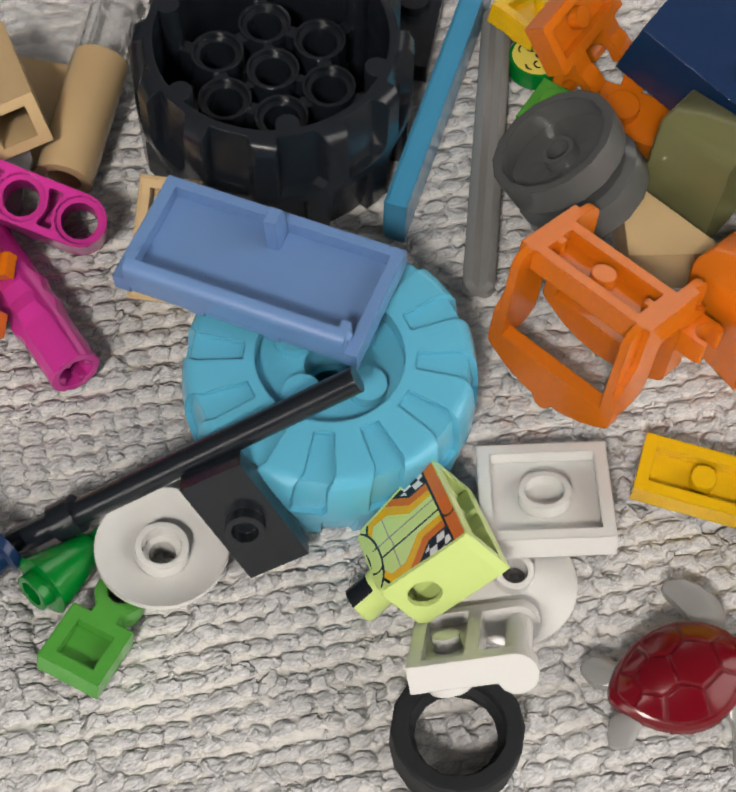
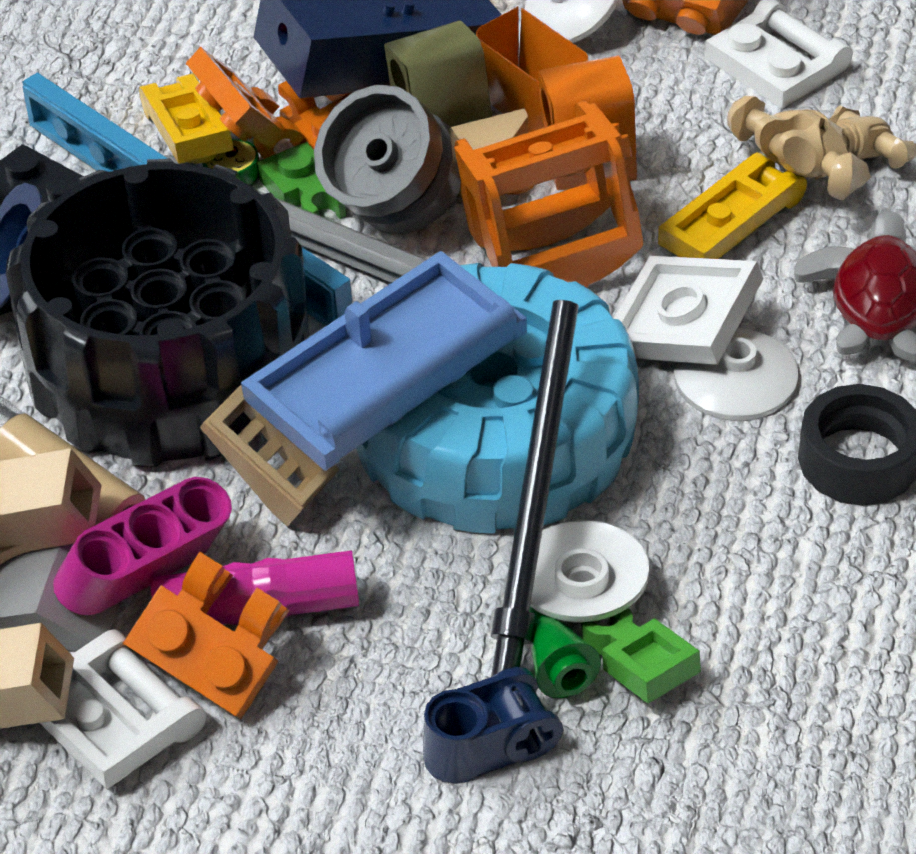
camera: 60 degrees left, 15 degrees down
(244, 513) = (597, 481): black plate -> none
(426, 550) = (699, 382): yellowish green torso -> none
(452, 653) = (803, 386): white plate -> none

